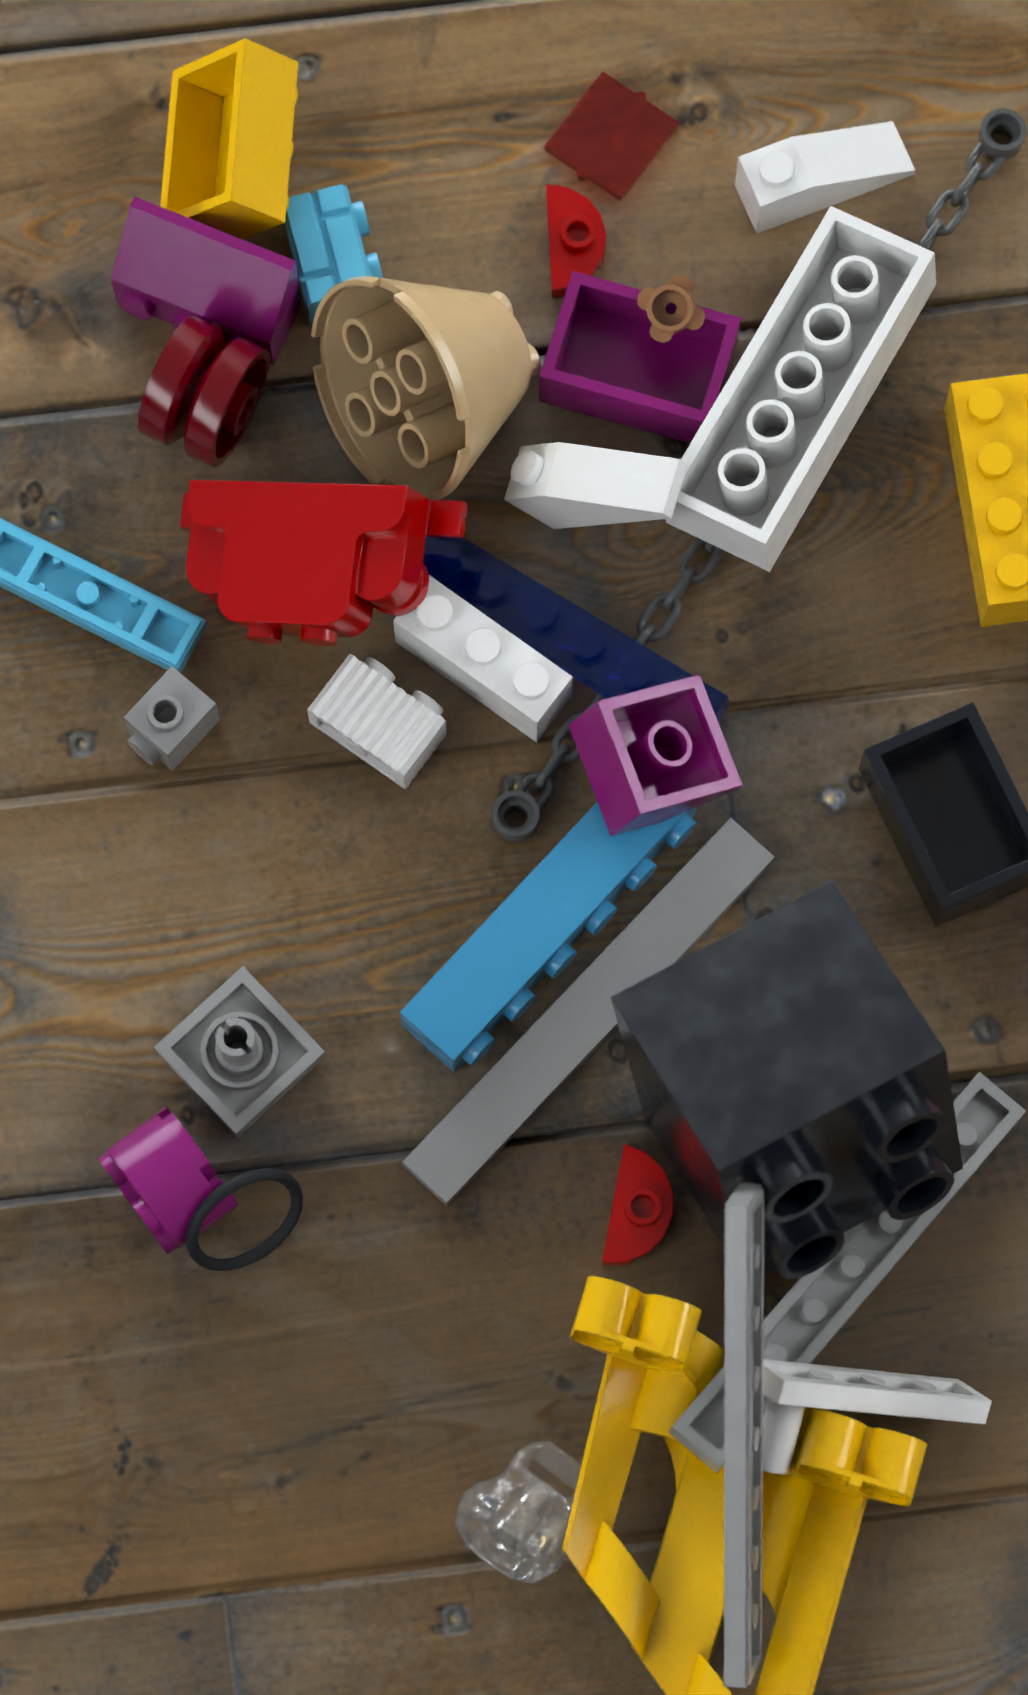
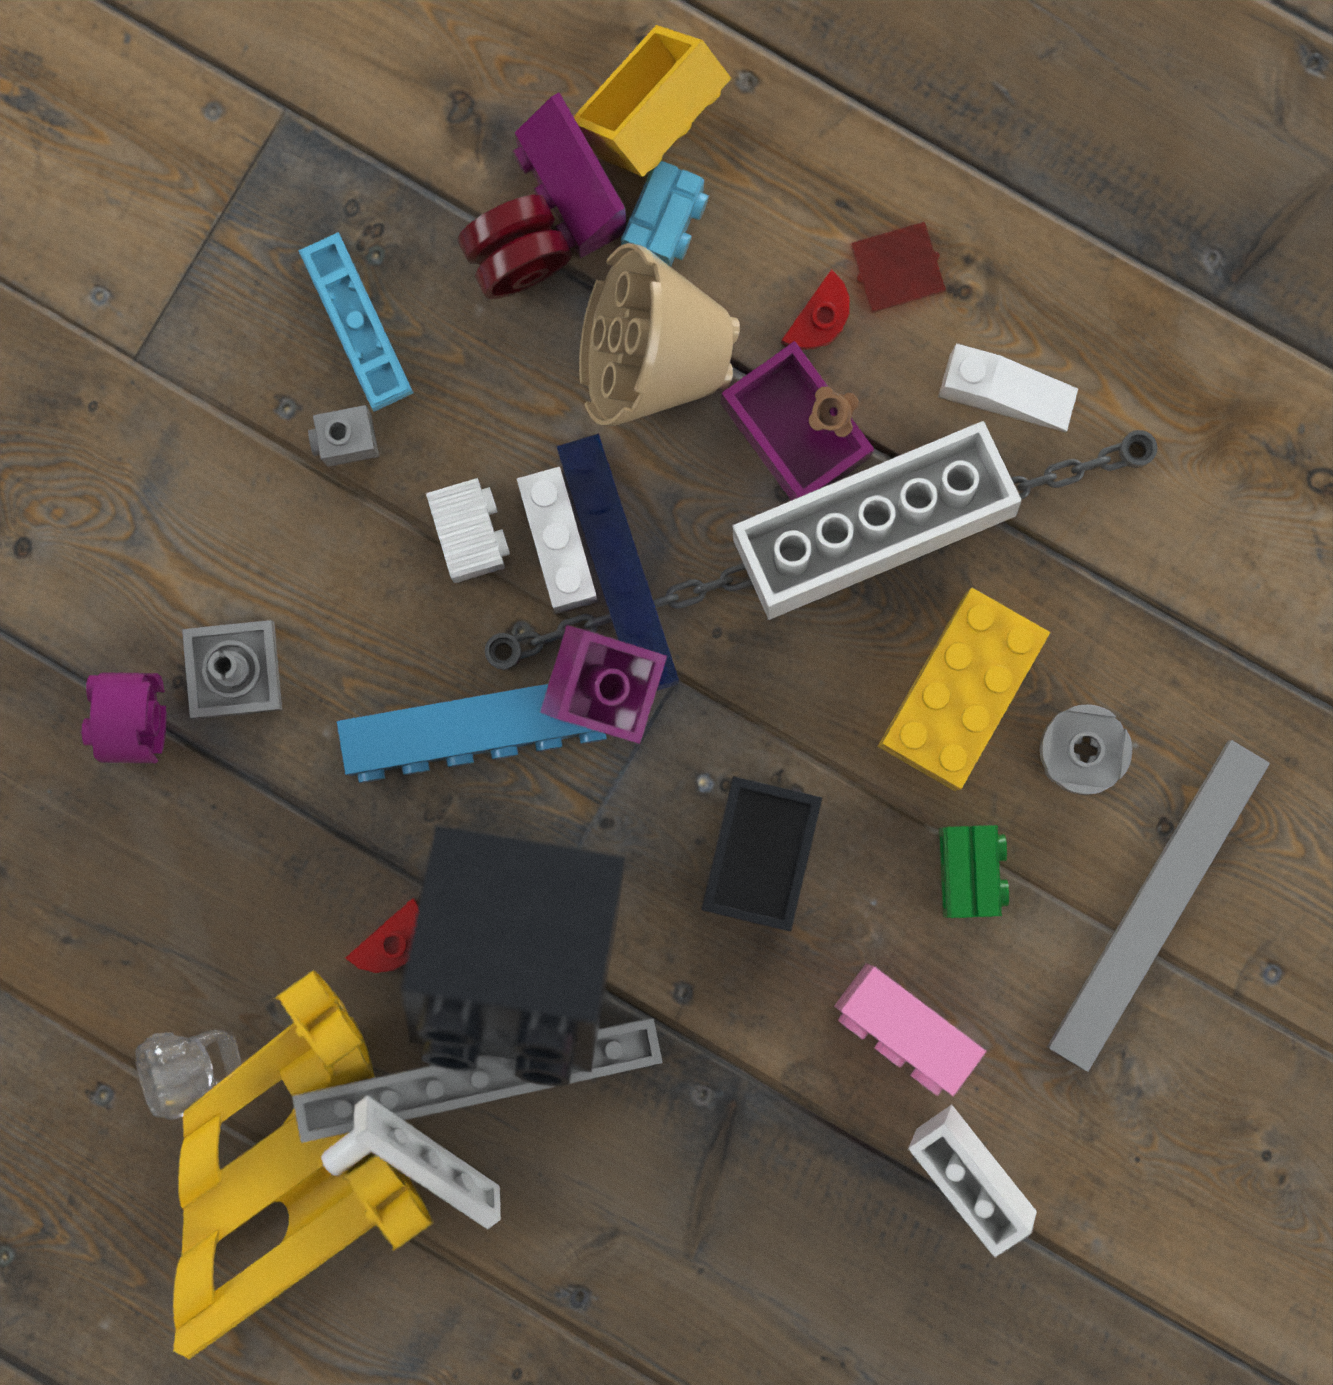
camera: 35 degrees right, 10 degrees up
(222, 1192) = (152, 755): black tyre -> none
(311, 553) = (496, 402): red brick -> none
(585, 1013) = (456, 801): light grey tile -> none
(593, 485) = (702, 486): white slope -> none
(743, 1433) = (319, 1138): light grey tile -> none

